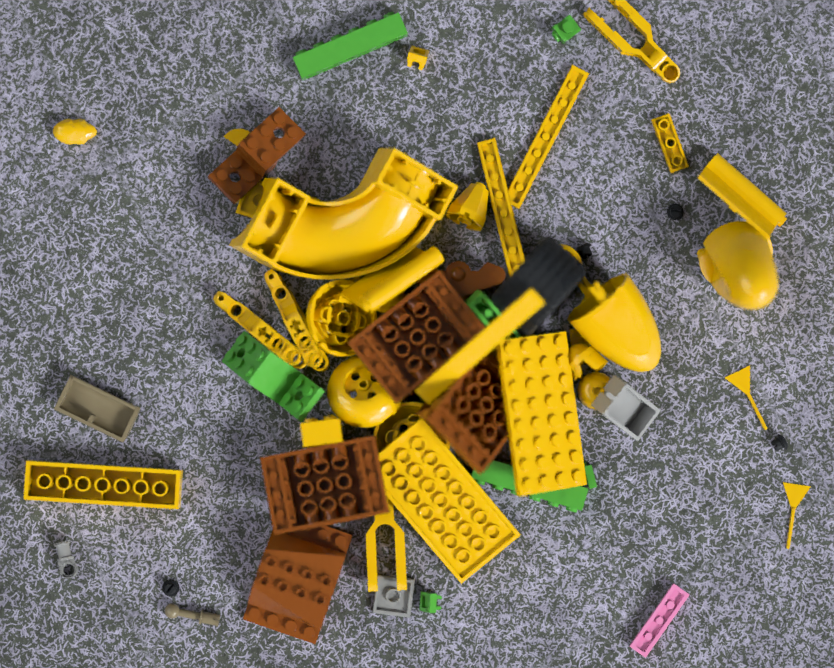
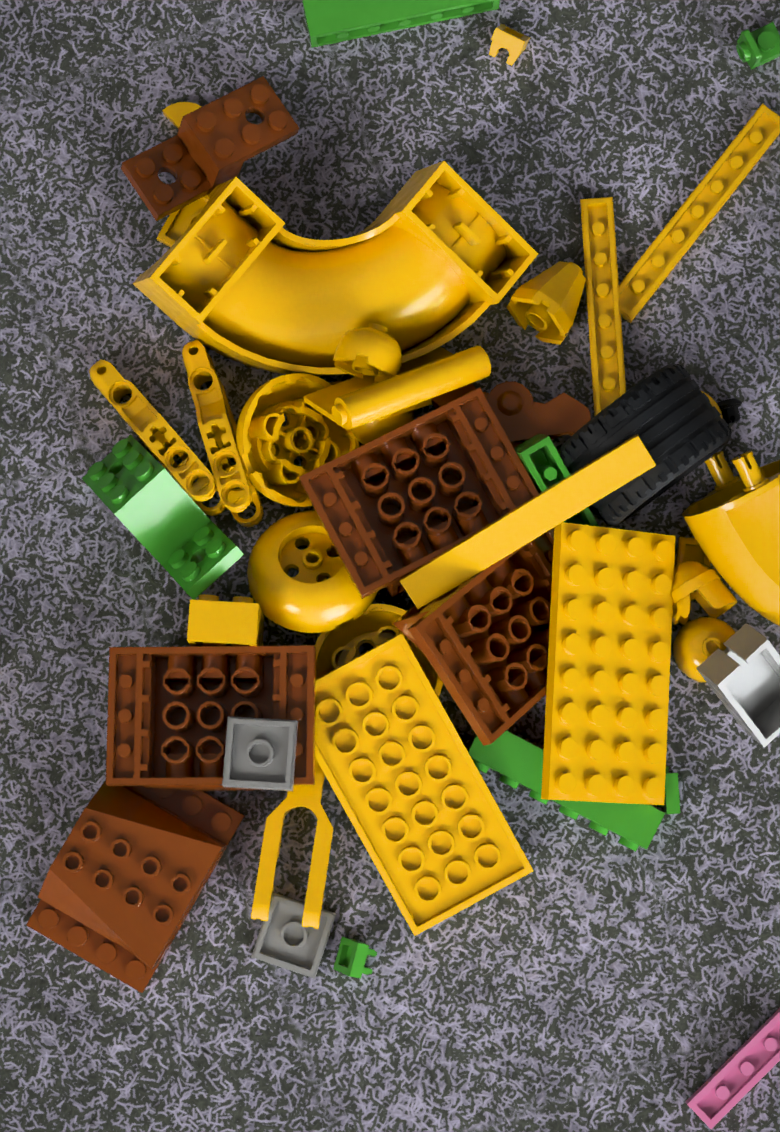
camera: 10 degrees right, 5 degrees down
(356, 501) = (260, 753): none -> light grey tile
(373, 263) = (369, 353): none -> yellow cylinder

